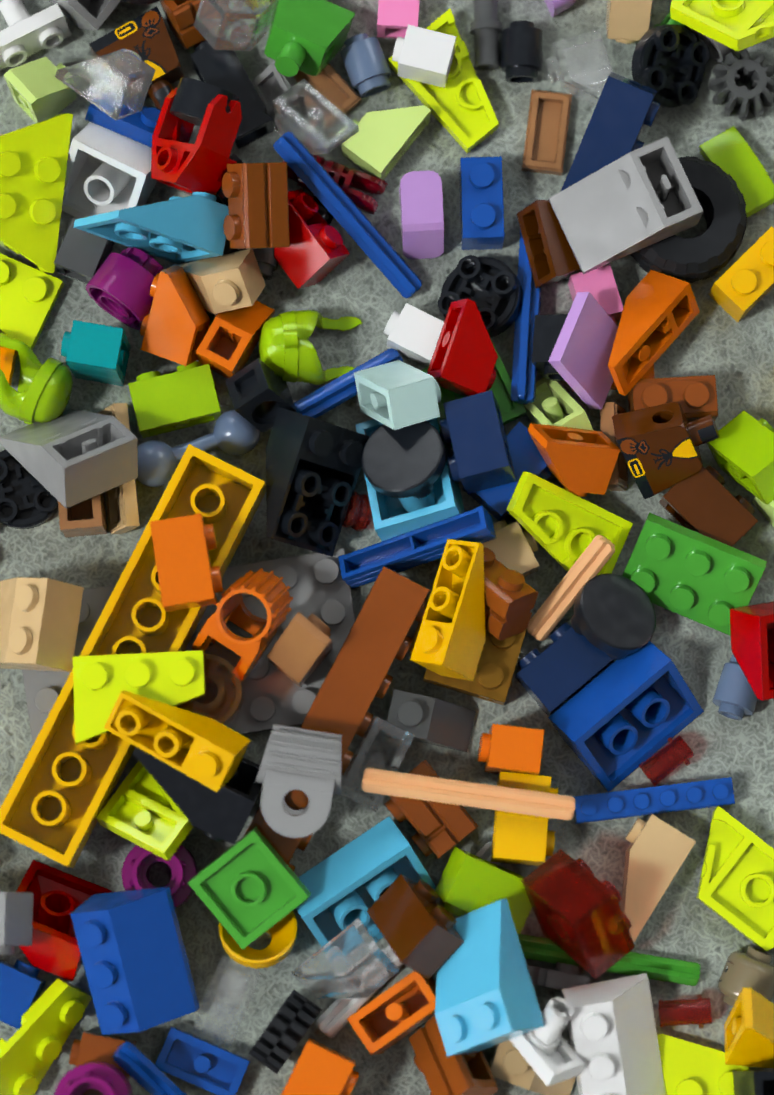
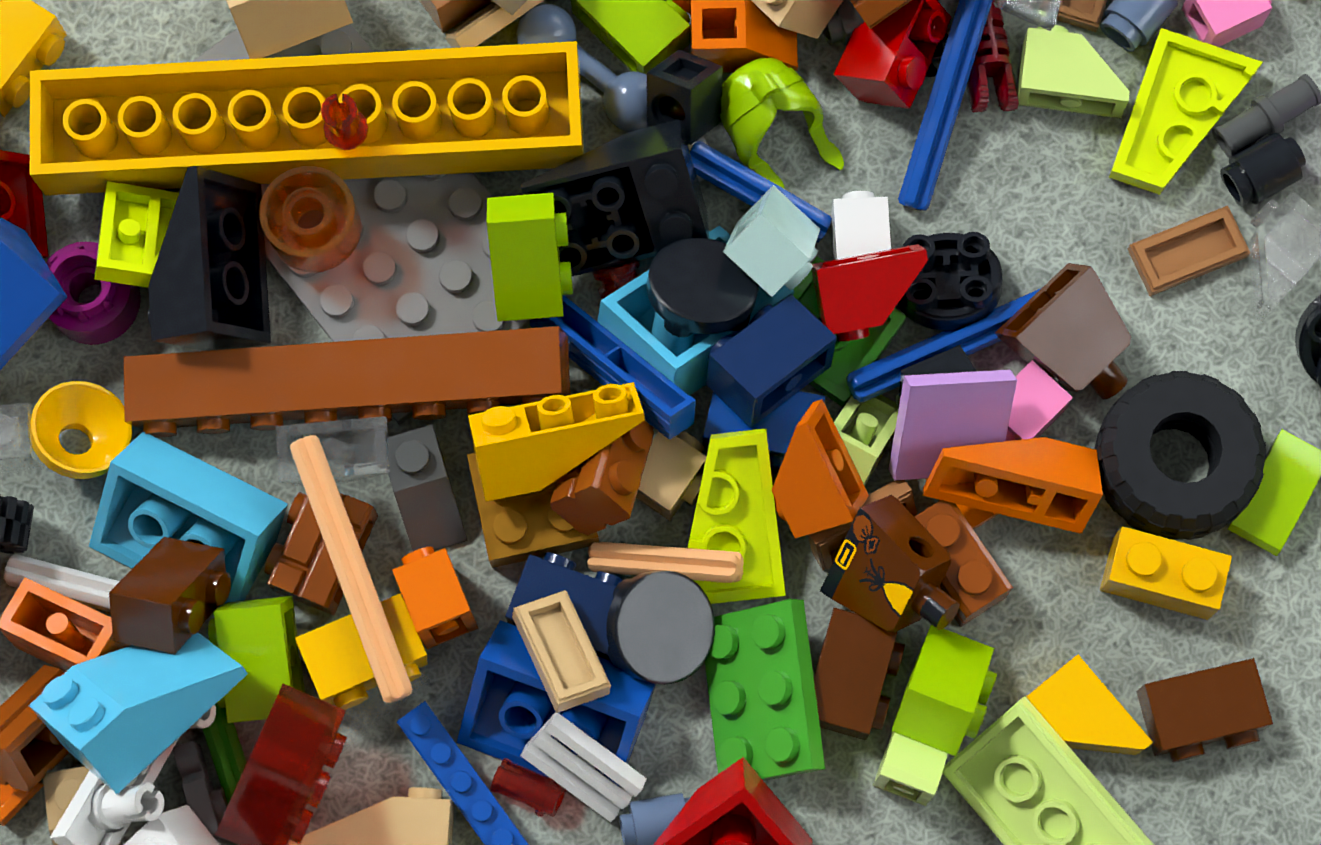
camera: 65 degrees right, 5 degrees down
(157, 676) = (265, 129): neon yellow wing -> none
(168, 640) = (353, 122): none -> clear red pin
(179, 738) = (233, 216): yellow slope -> none
(185, 562) = (434, 104): orange brick -> none
(230, 607) = (445, 223): orange piece -> none
(249, 888) = (115, 387): bright green plate -> none
(301, 648) = (419, 295): medium nougat slope -> none
(302, 762) = (279, 360): light grey piece -> none
(318, 561) = (526, 258): none -> lime brick
(347, 966) = (91, 548): clear slope -> none
(421, 214) = (1001, 157): lavender piece -> none
(424, 55) = (1187, 59): white brick -> none
(481, 203) = (1057, 219): blue brick -> none
(599, 686) = (561, 651): none -> tan tile
(613, 126) = (1217, 317): dark blue brick -> none
(627, 205) = (1145, 367): light grey slope -> none
(676, 721) = (578, 771): none -> white tile

